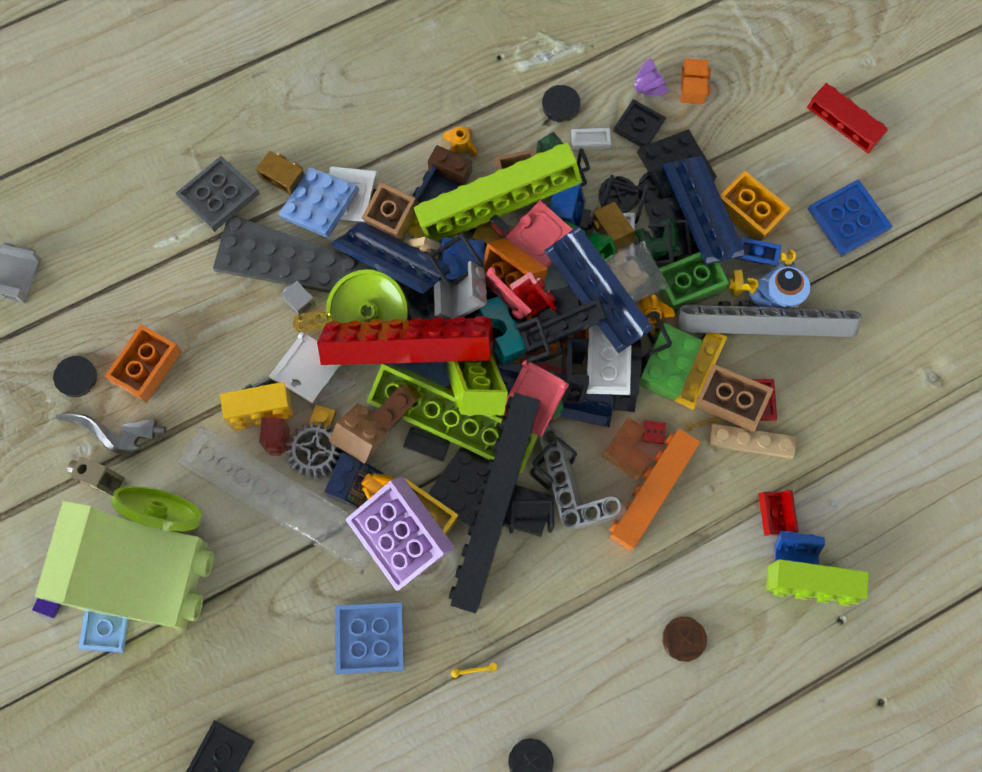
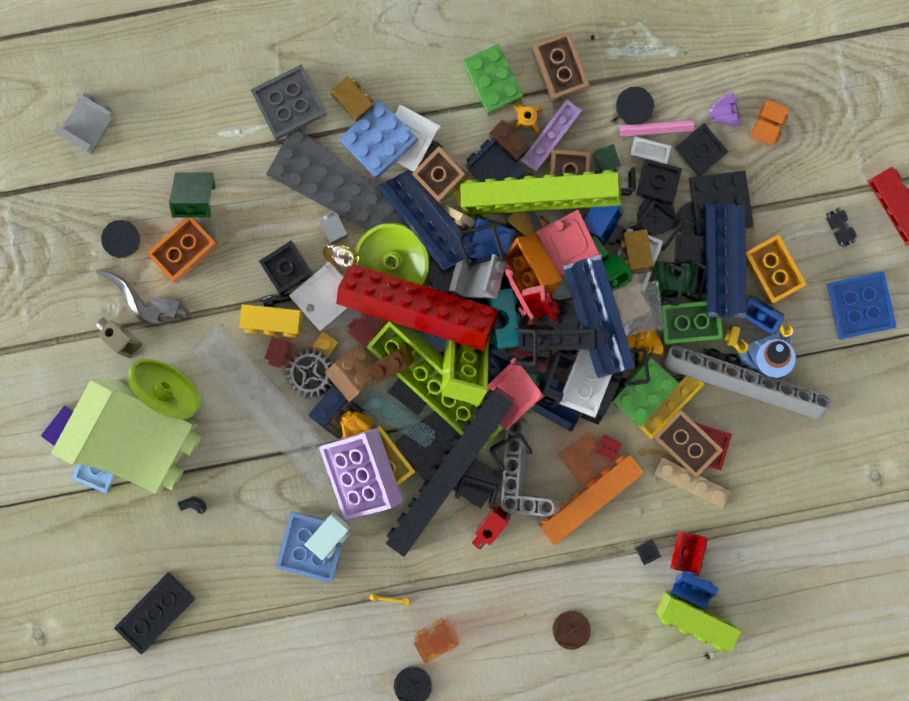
camera: 15 degrees right, 15 degrees up
(139, 305) = (191, 194): none -> dark green panel
(224, 630) = (193, 502): none -> black arm
(258, 349) = (286, 267): none -> black brick
(360, 384) = (366, 328): none -> clear red brick
(383, 613) = (328, 535): none -> light aqua brick
(415, 116) = (493, 79): none -> bright green brick
(425, 469) = (400, 420): none -> clear light blue plate
(477, 86) = (560, 67): none -> medium nougat brick
(490, 147) = (551, 135): none -> lavender plate
(540, 696) = (435, 640): none -> clear orange brick
(562, 542) = (494, 521): none -> red torso
(589, 116) = (657, 128): none -> bright pink axle
(609, 161) = (658, 181): none -> black tile
(734, 526) = (647, 551): none -> black plate
(795, 147) = (839, 220): none -> black hinge

